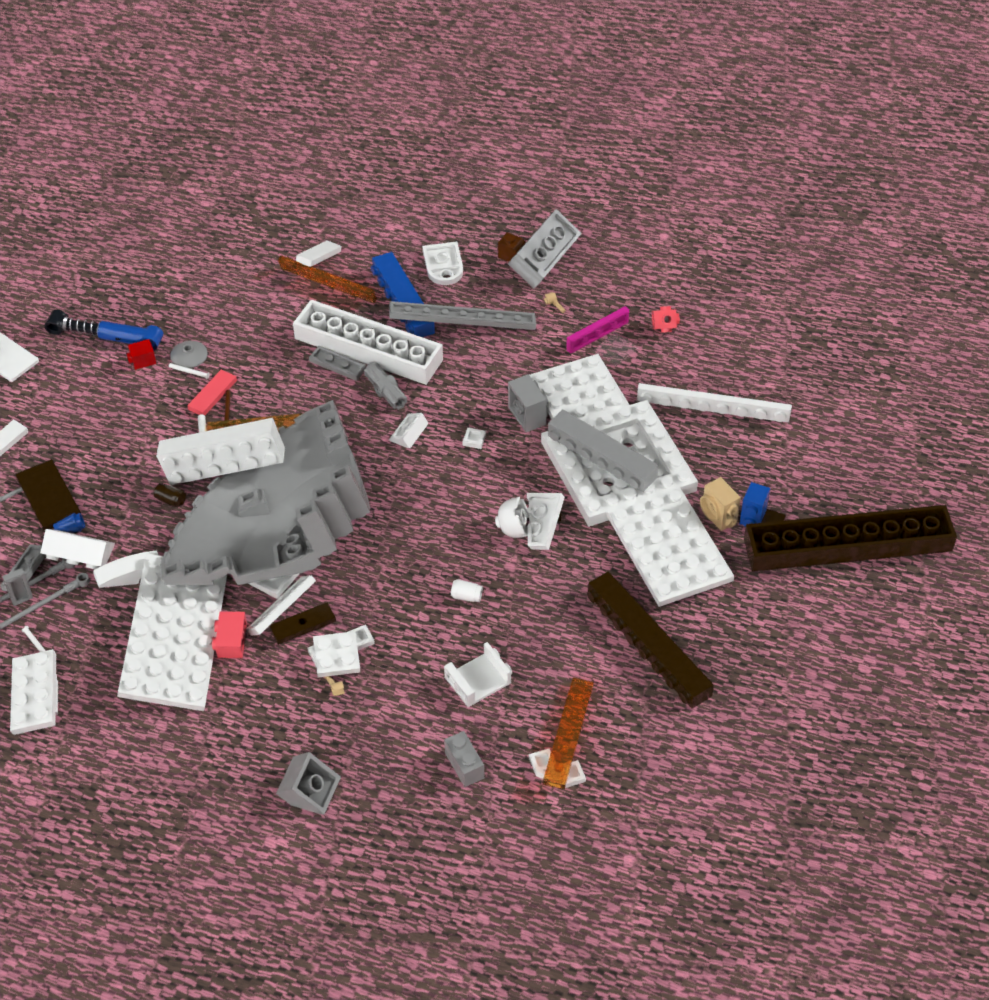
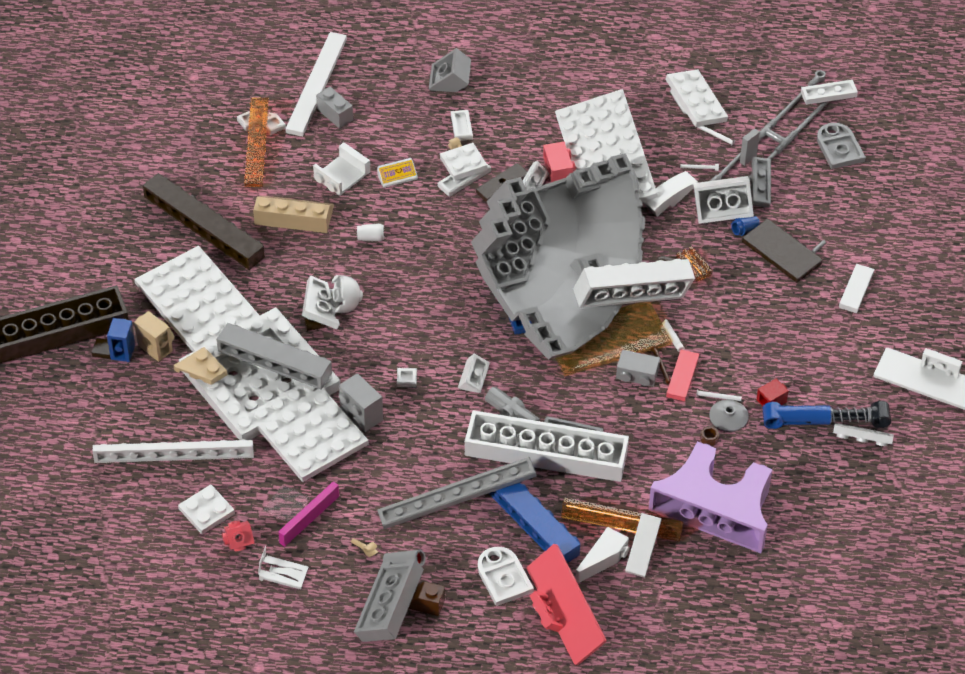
camera: 165 degrees right, 0 degrees up
(60, 602) = (716, 166): none -> white piece
(80, 309) = (863, 434): none -> white plate
(140, 486) = (694, 257): none -> clear orange tile
(216, 334) = (709, 435): none -> reddish brown tile
(248, 270) = (713, 507): none -> lavender piece
(252, 399) = (637, 368): none -> light grey brick
(319, 714) = (461, 125): none -> white tile
(354, 257) = (604, 554): none -> white slope
(404, 224) = (564, 605): none -> coral bracket
(415, 663) = (397, 172): none -> slope
(474, 814) = (316, 83): none -> white tile
(545, 632) = (292, 213): none -> tan slope
(634, 300) = (290, 570): none -> white piece
(676, 460) = (202, 366): none -> tan wing
(689, 355) = (206, 509): none -> white plate

